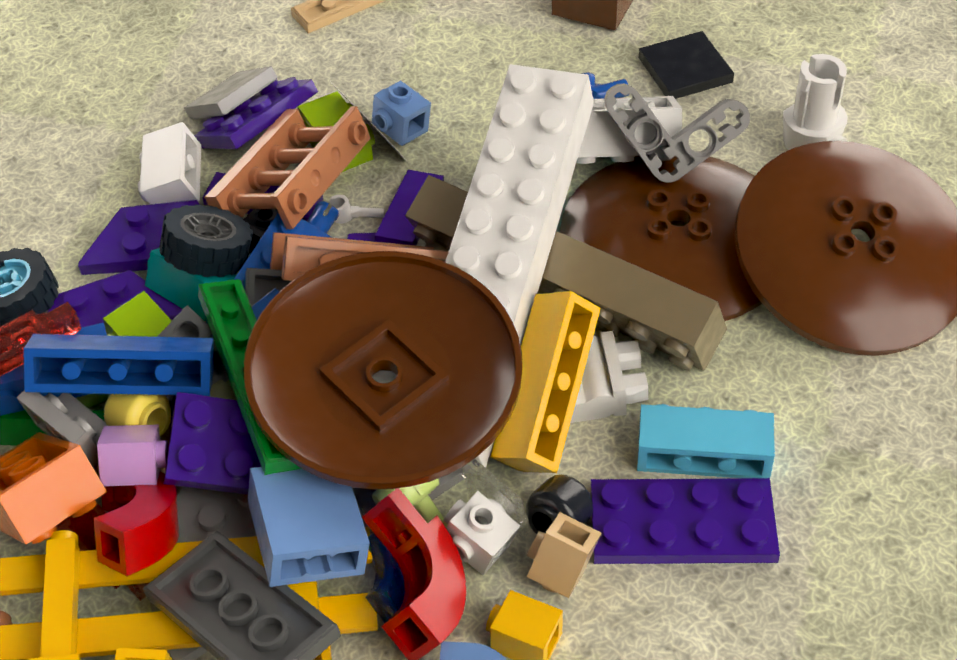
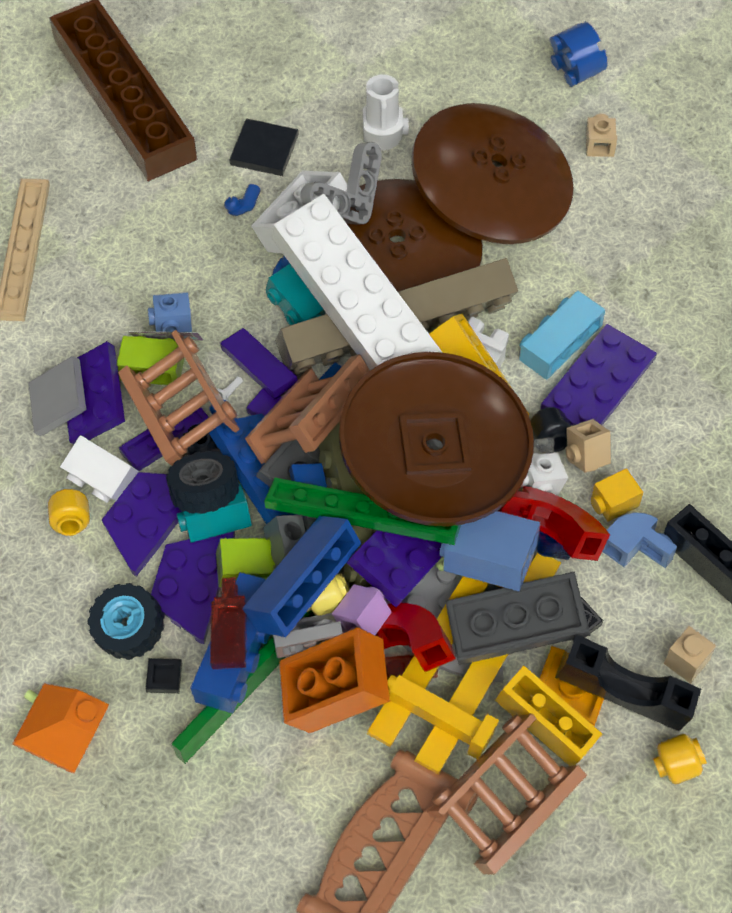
camera: 55 degrees left, 10 degrees up
(107, 178) = (68, 512): none -> yellow head

